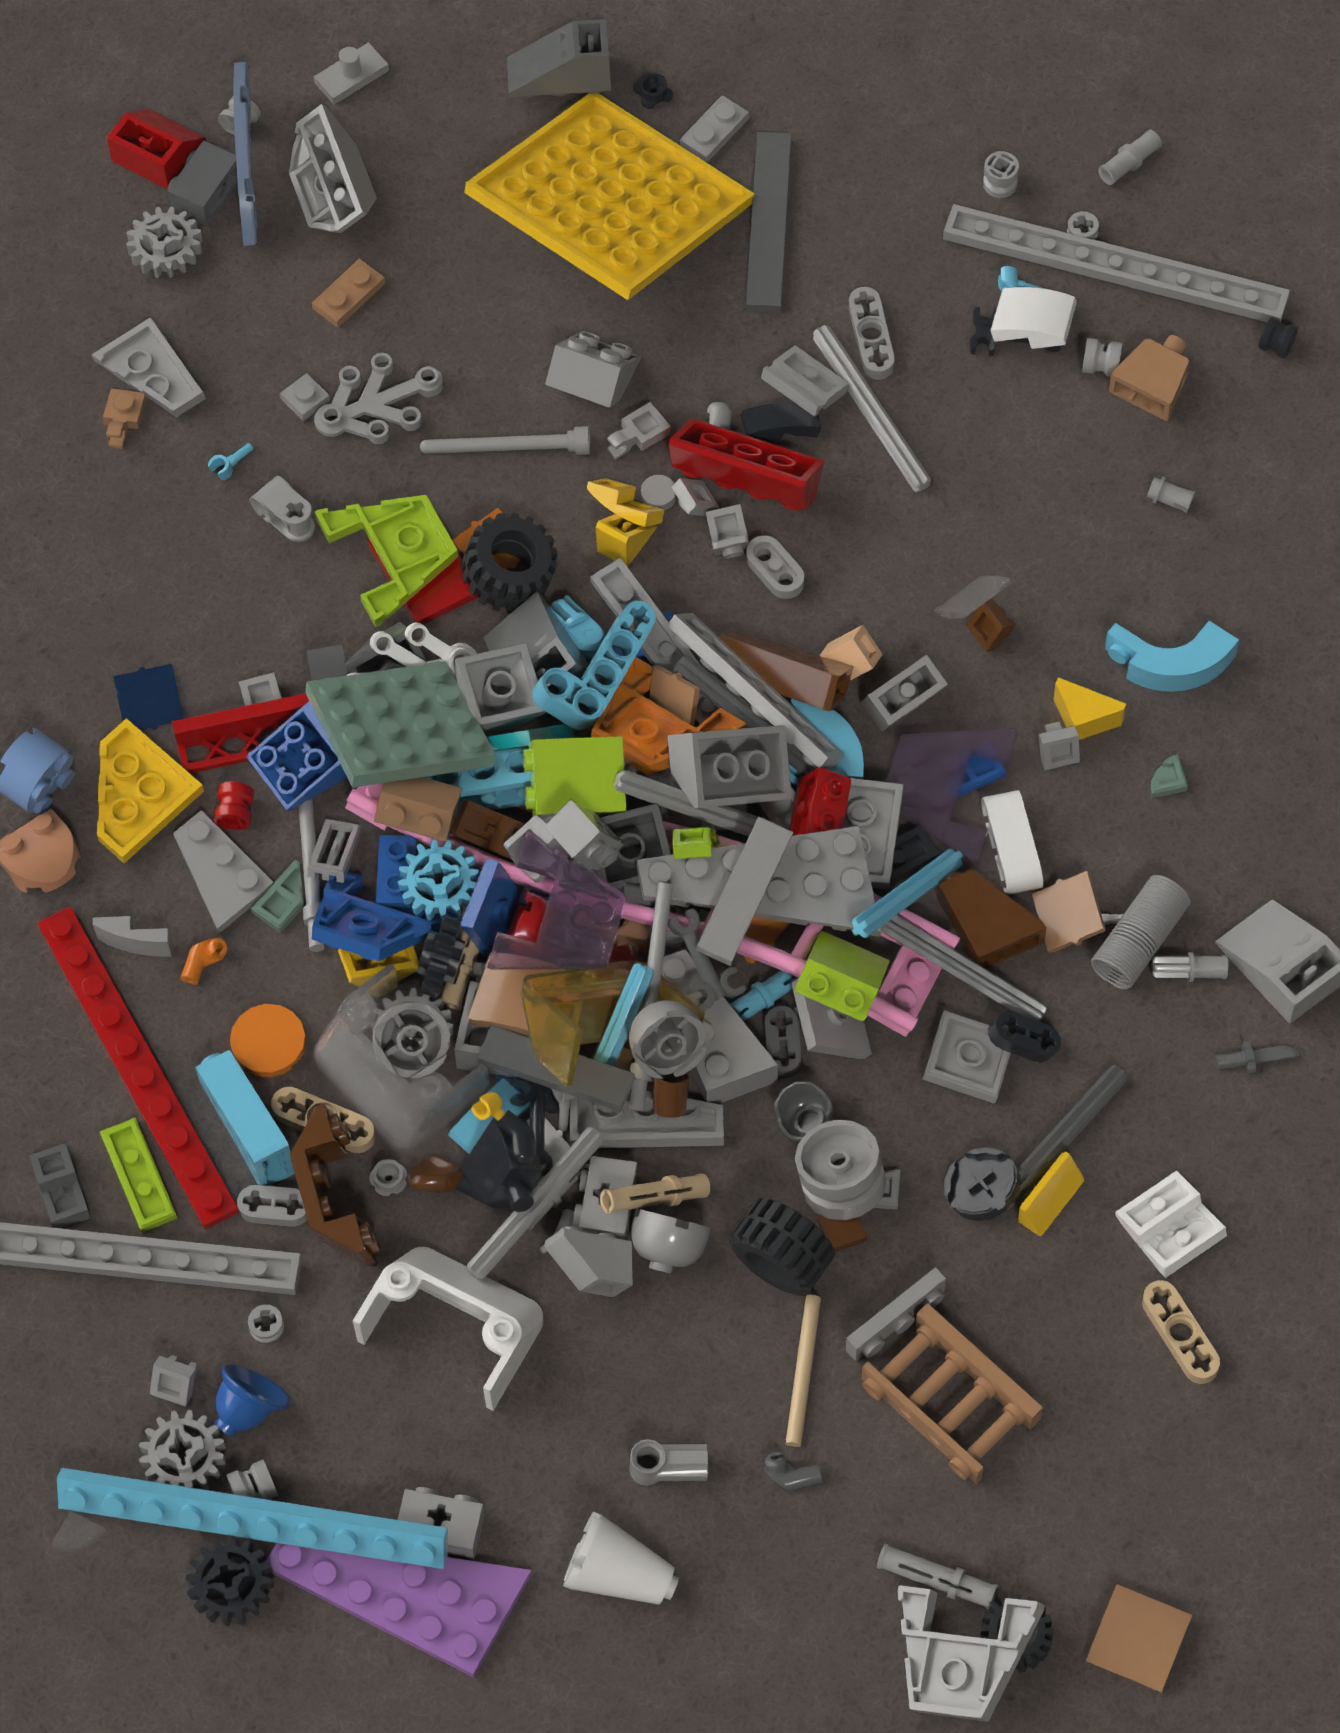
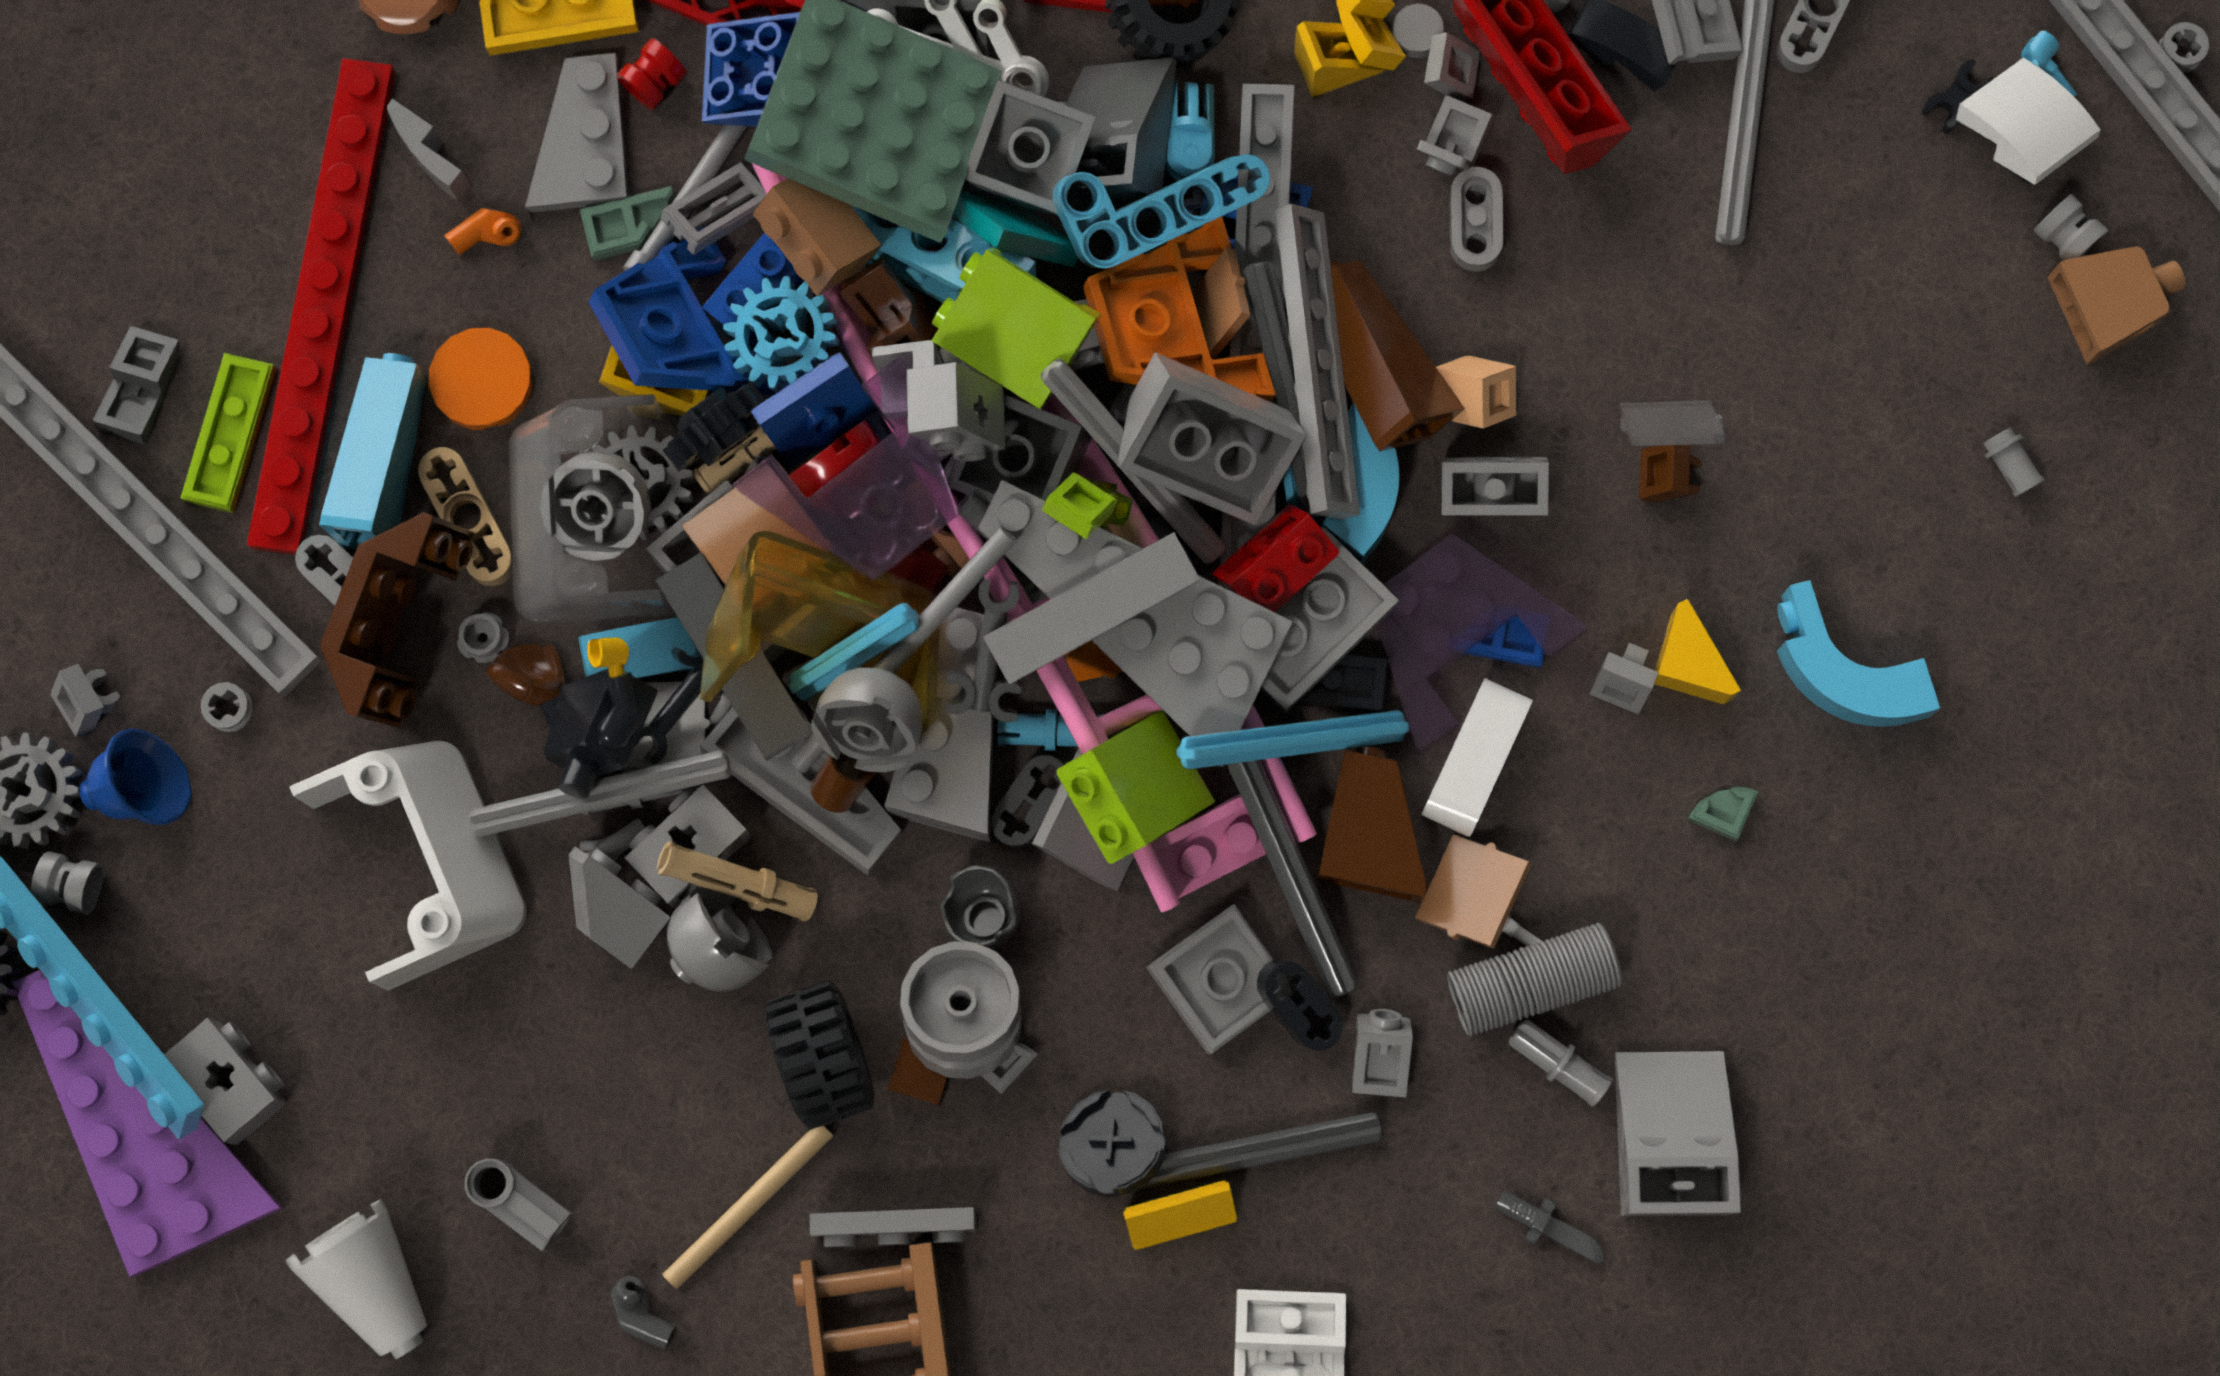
camera: 40 degrees right, 15 degrees up
(1091, 1031) = (1382, 1053): none -> light grey bracket

